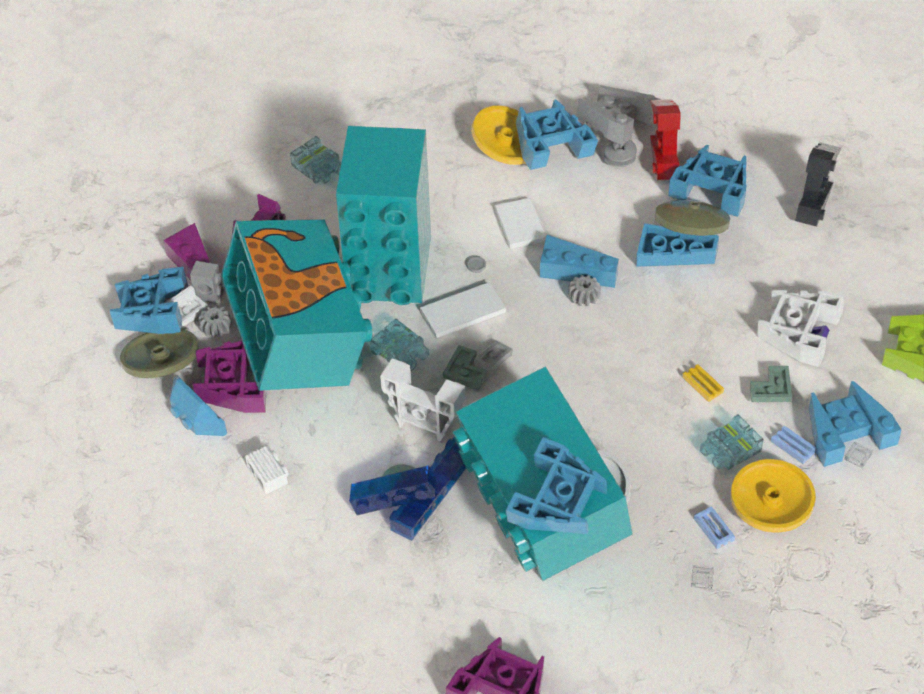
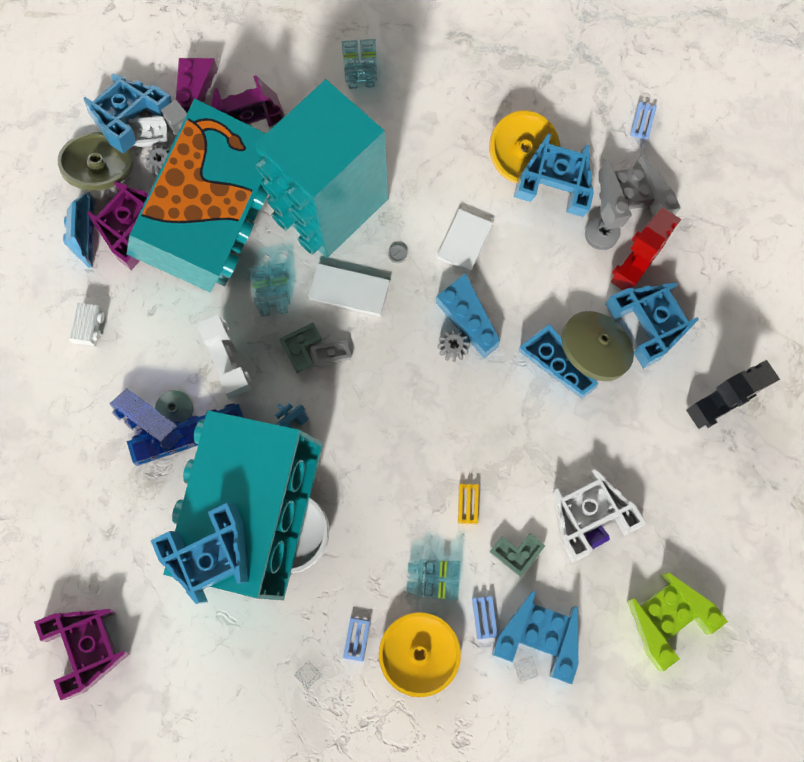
camera: 40 degrees right, 25 degrees up
(577, 69) = (646, 108): none -> light blue tile

